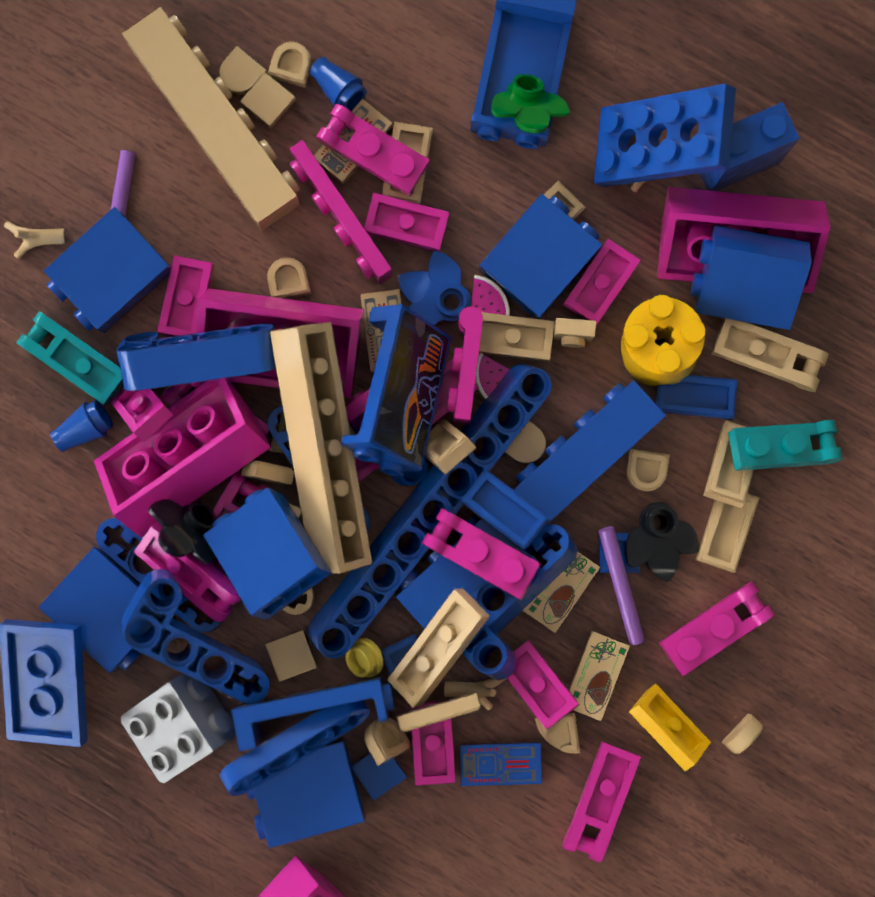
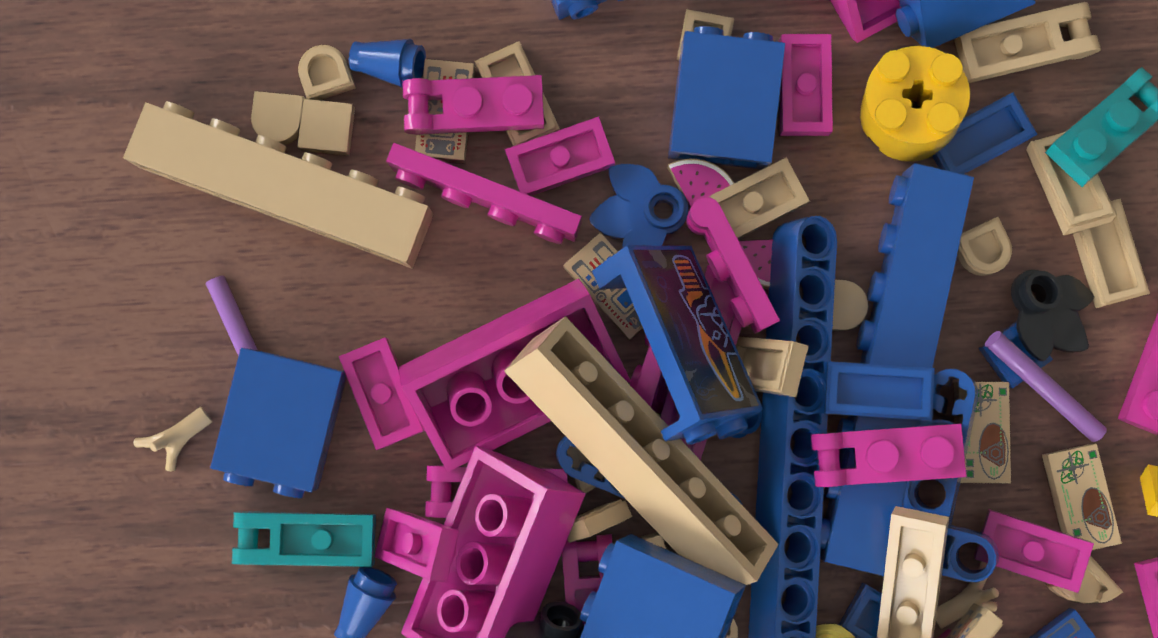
camera: 30 degrees left, 0 degrees up
(196, 357) = (439, 453): blue beam -> none
(288, 279) = (475, 300): tan tile -> none
(574, 332) = (815, 154): tan plate -> none

